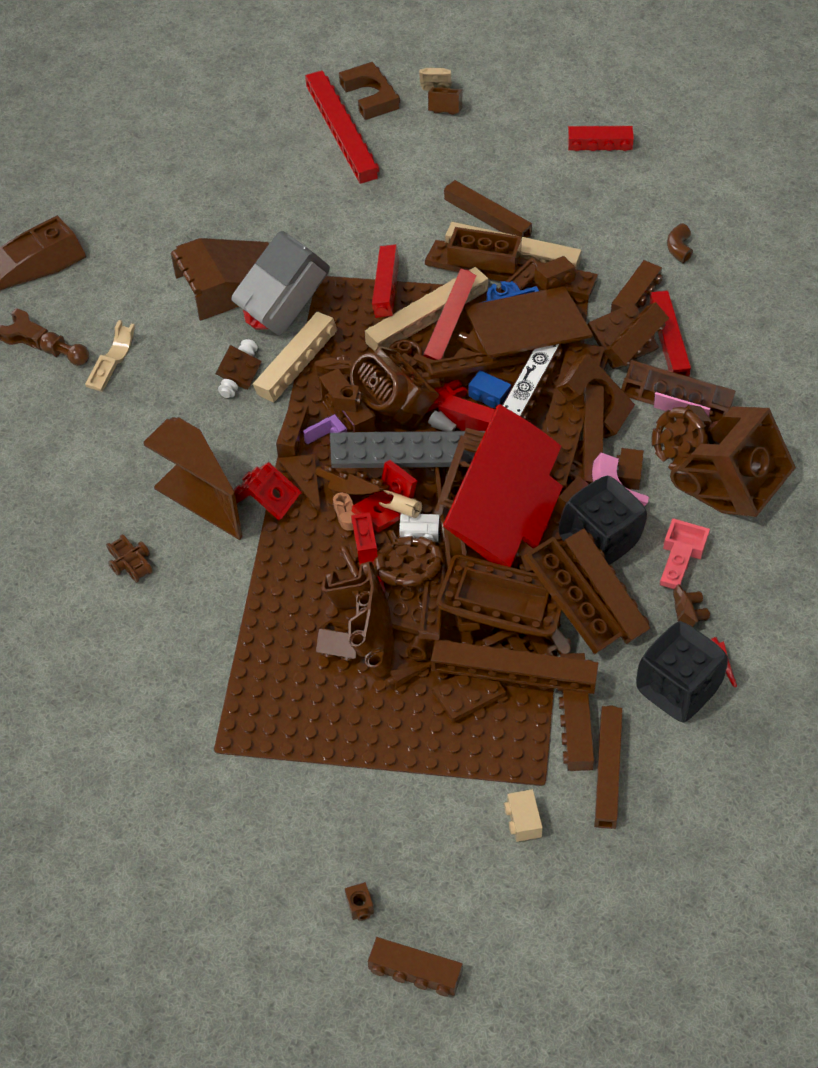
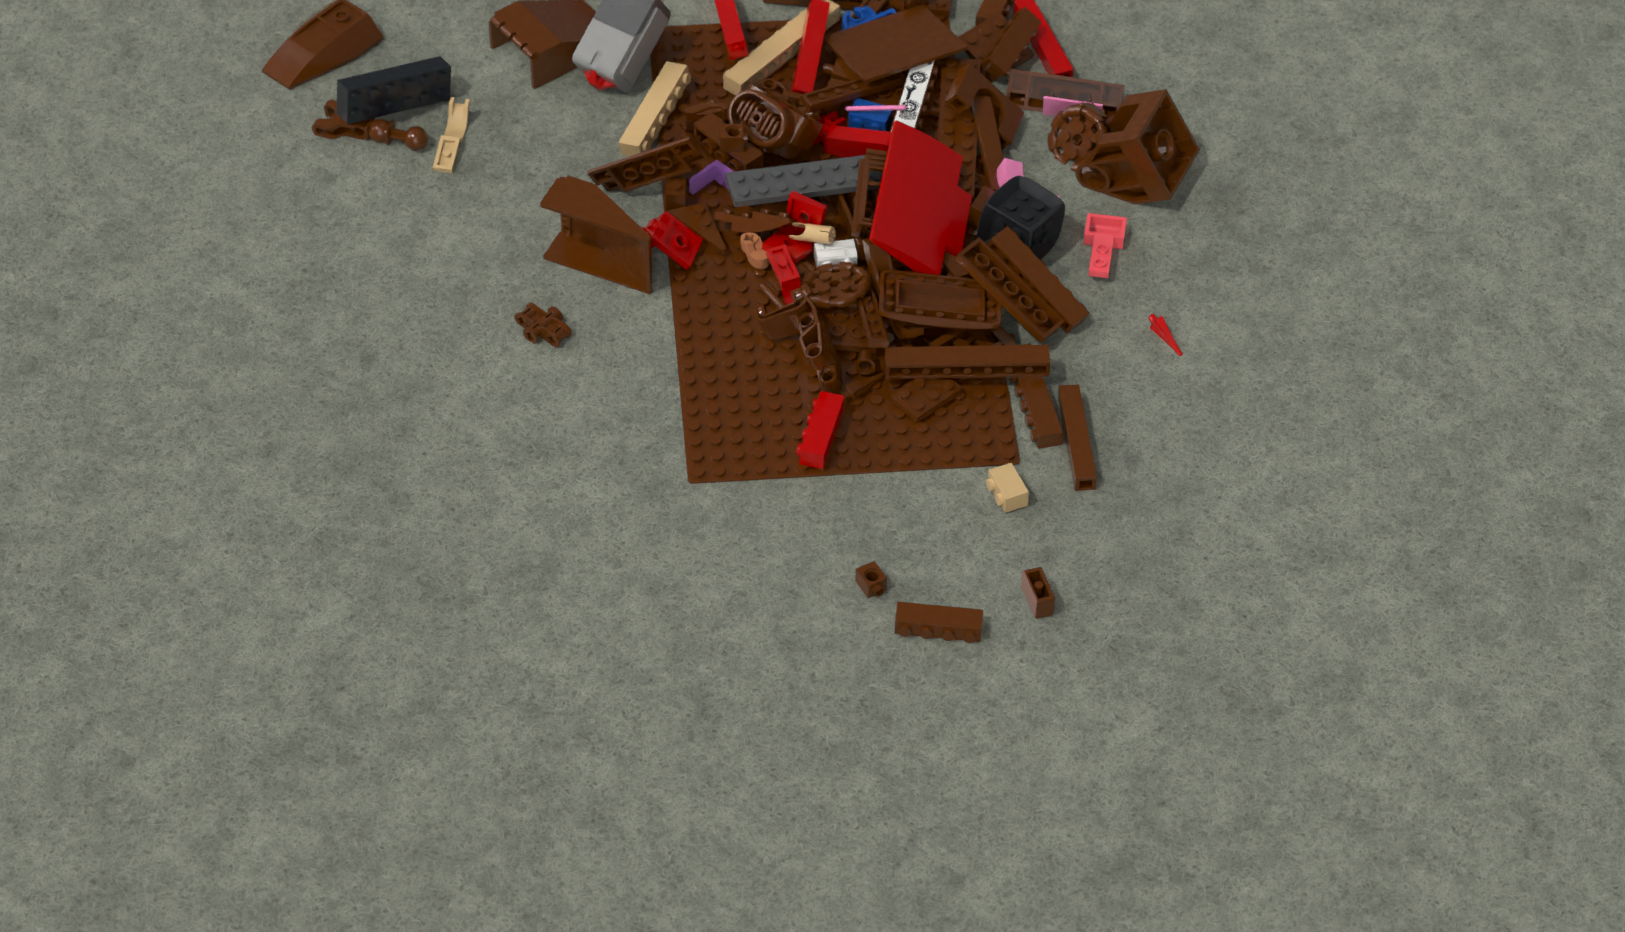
camera: 15 degrees left, 5 degrees down
(68, 307) = (393, 90): none -> black brick
(238, 368) = (594, 130): reddish brown plate -> none
(269, 413) = (651, 165): none -> reddish brown slope
(334, 640) = (786, 366): reddish brown slope -> none
(354, 717) = (821, 430): none -> red brick
(441, 422) = (826, 152): light grey cone -> none
(492, 383) = (875, 108): none -> bright pink axle
(525, 950) = (1038, 592): none -> reddish brown brick
(630, 467) = (1035, 168): reddish brown brick -> none
(681, 671) = (1128, 343): black piece -> none
(685, 609) = (1119, 294): reddish brown connector -> none

